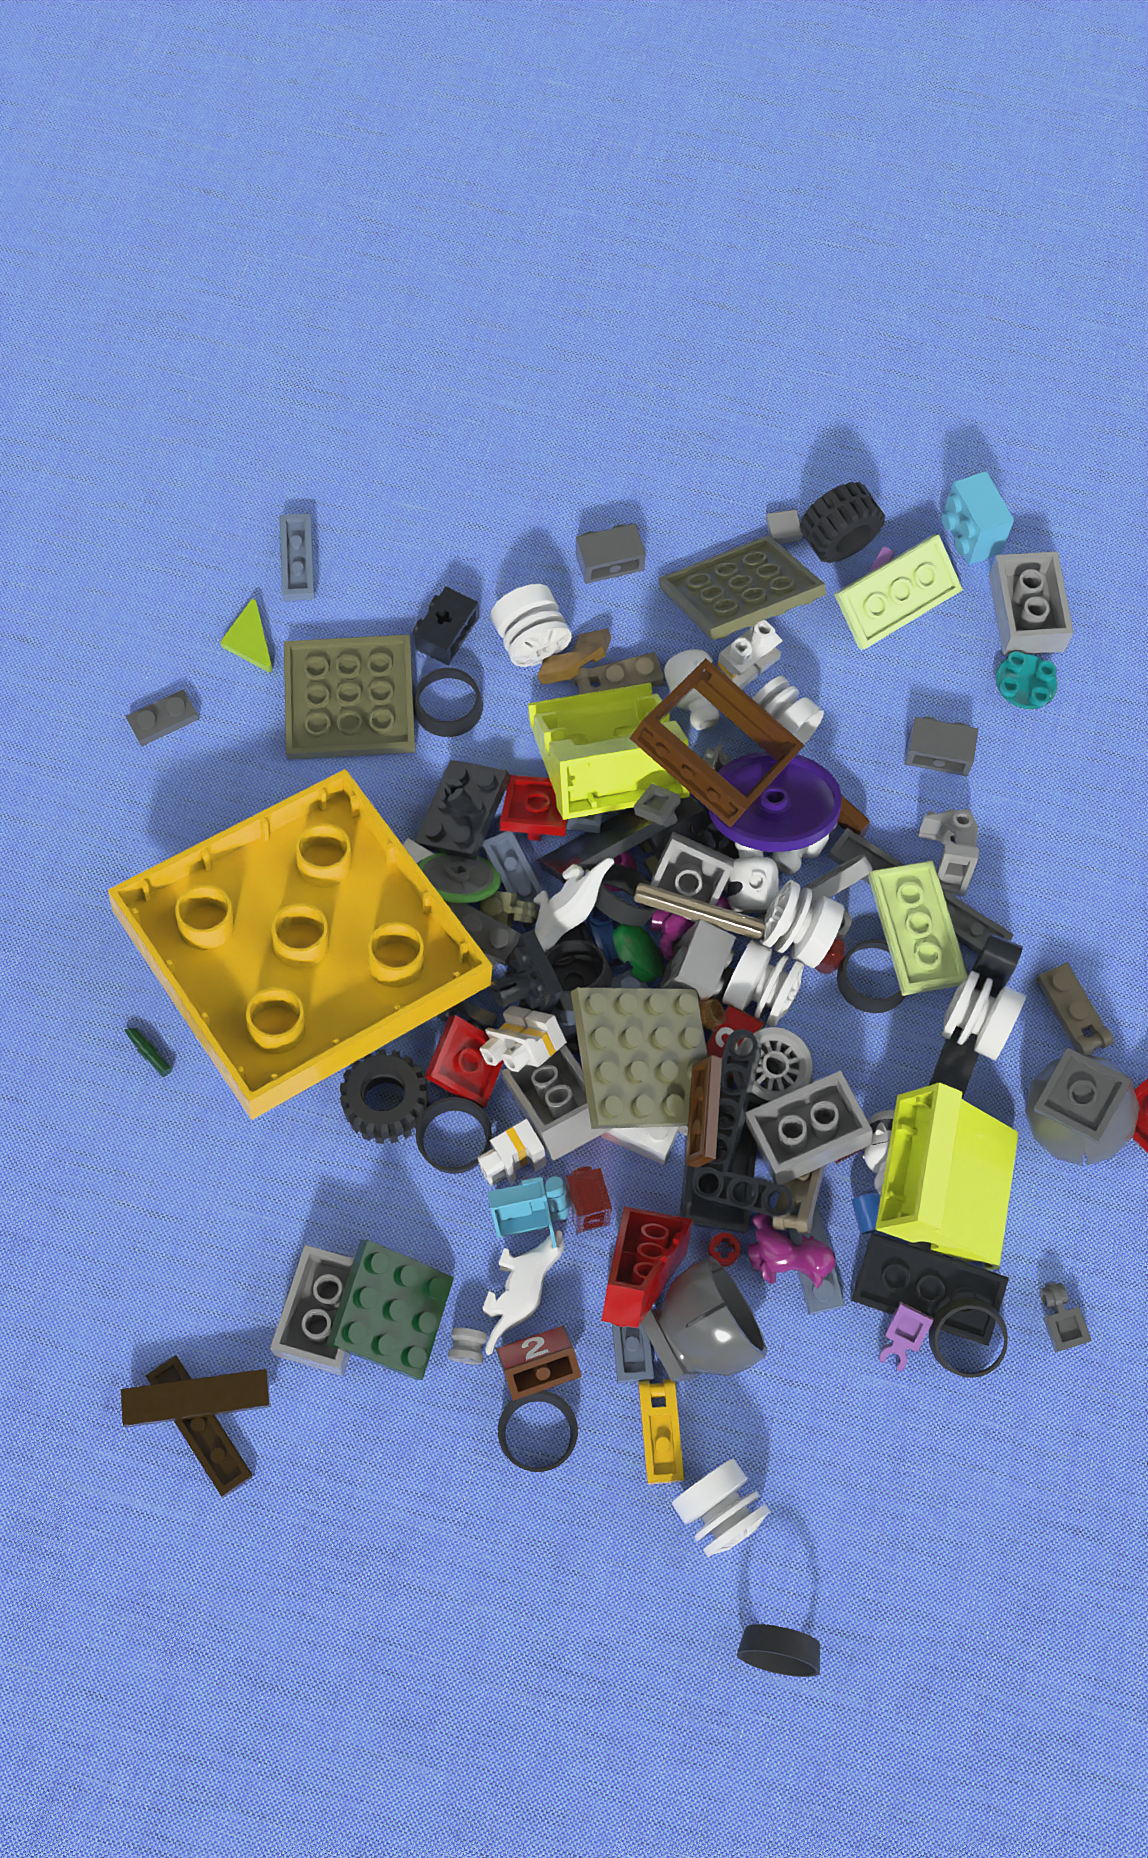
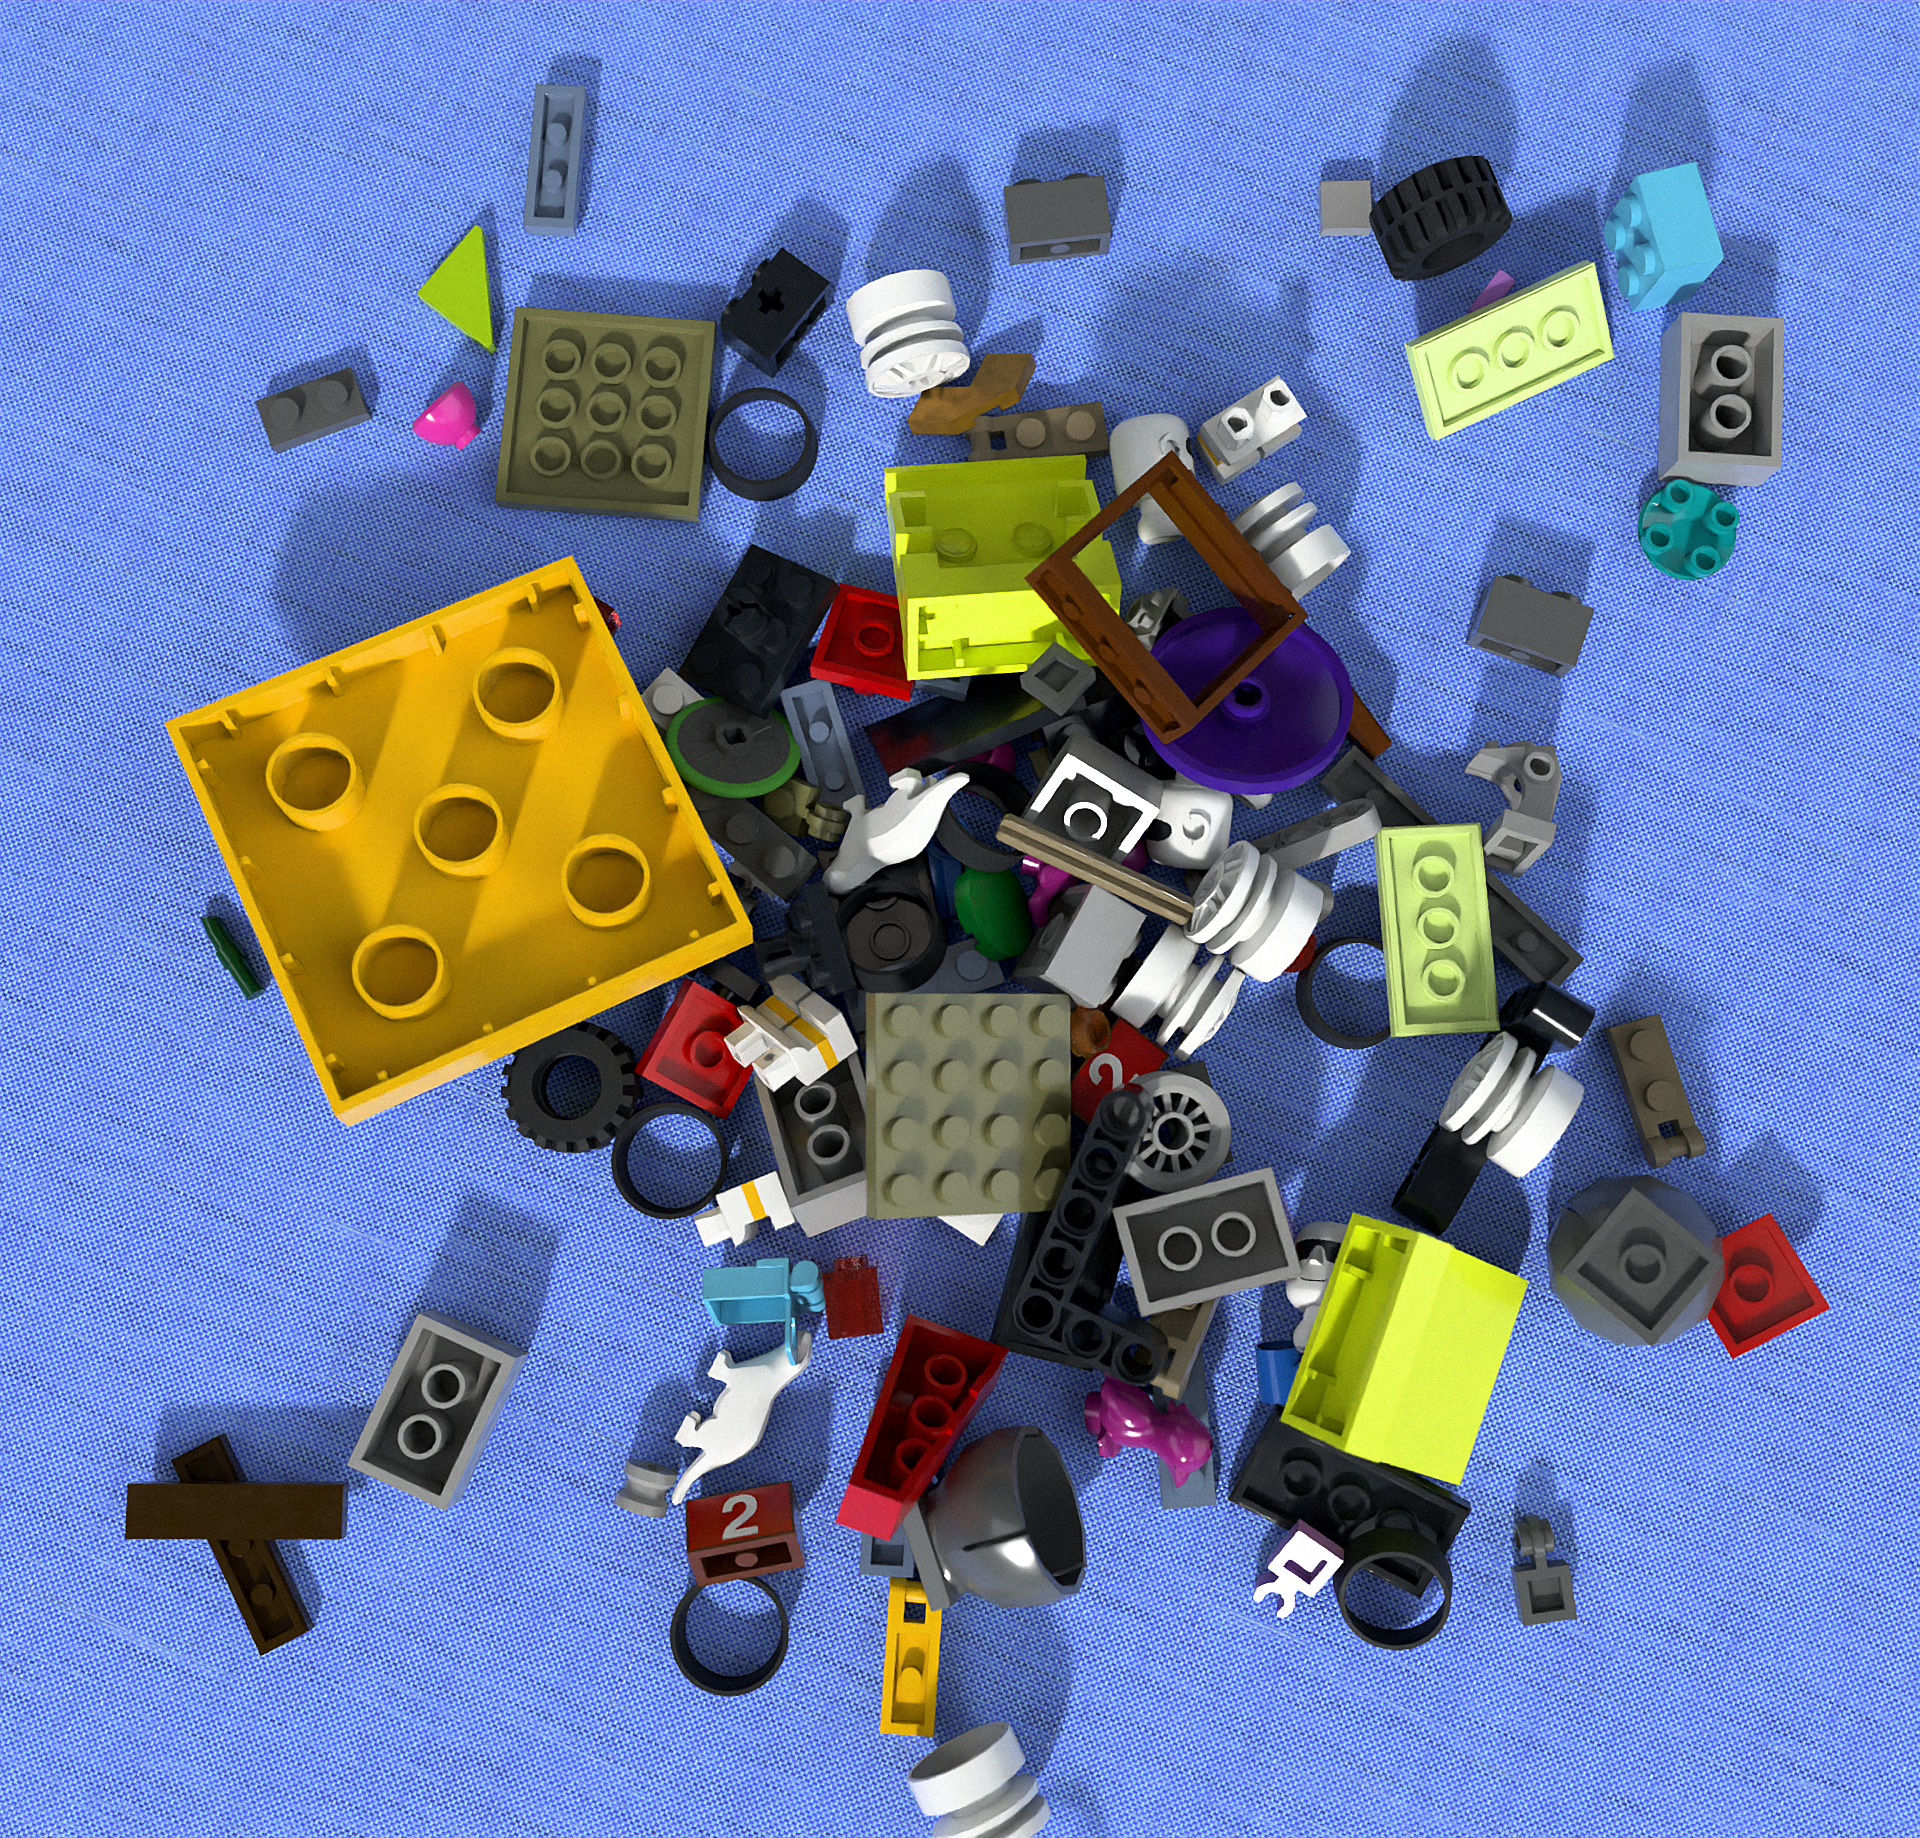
camera: 10 degrees right, 15 degrees up
(250, 710) = (449, 418): none -> dark pink brick
(390, 1310) = (534, 1426): plate -> none
(703, 1111) = (1046, 1207): reddish brown tile -> none
(732, 1242) = (1060, 1405): red bush -> none
(741, 587) = (1257, 314): olive plate -> none

